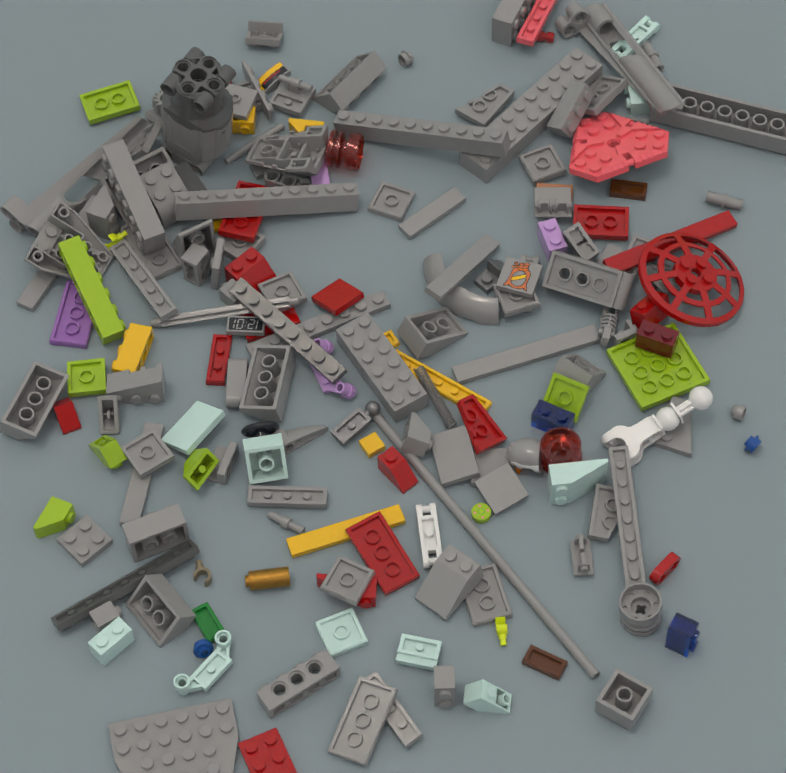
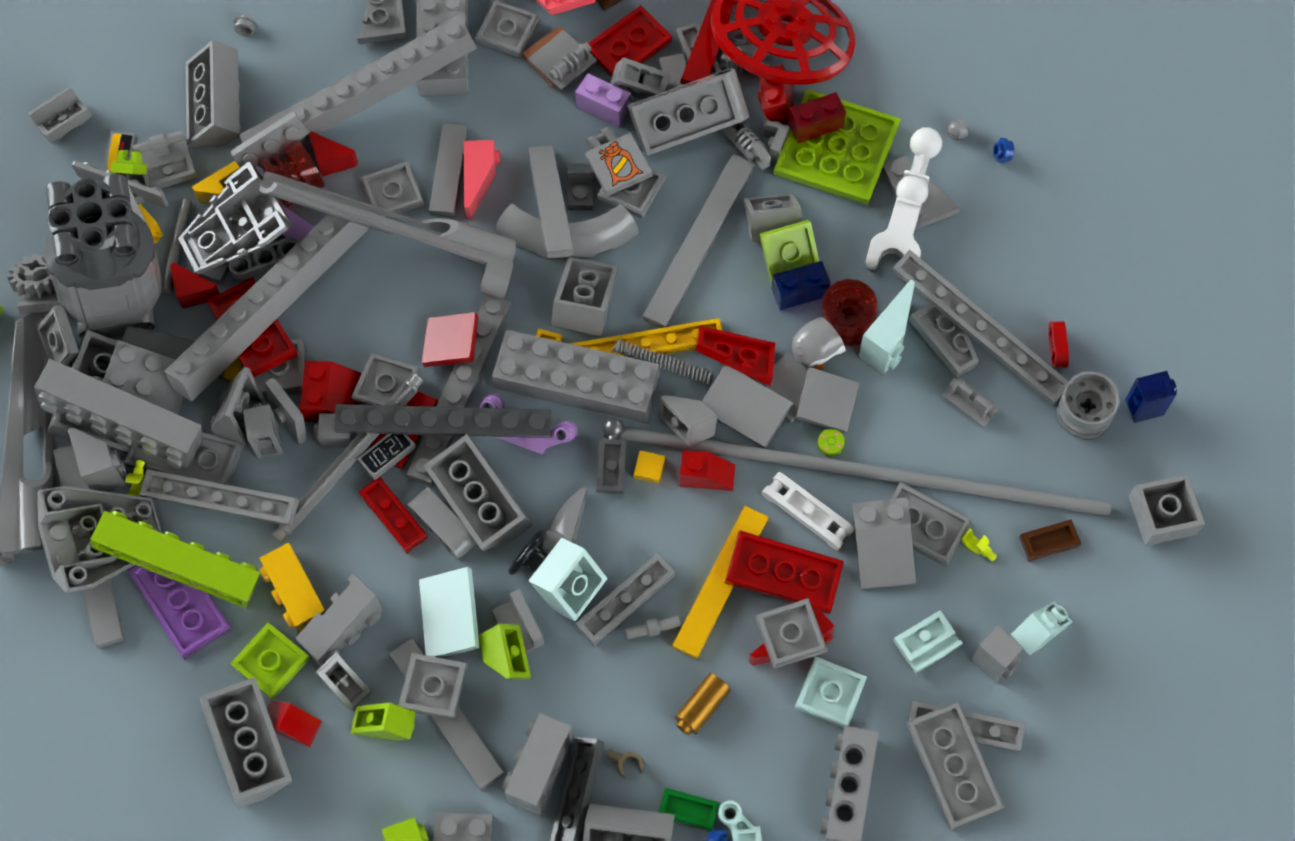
camera: 45 degrees left, 10 degrees up
(236, 168) = (190, 287): none -> red slope
(270, 82) = (127, 165): none -> lime tile
(349, 123) = (270, 140): none -> light grey plate
(376, 158) = (331, 155): none -> red slope
(393, 249) = (458, 238): none -> light grey panel
(443, 226) = (479, 172): none -> coral slope

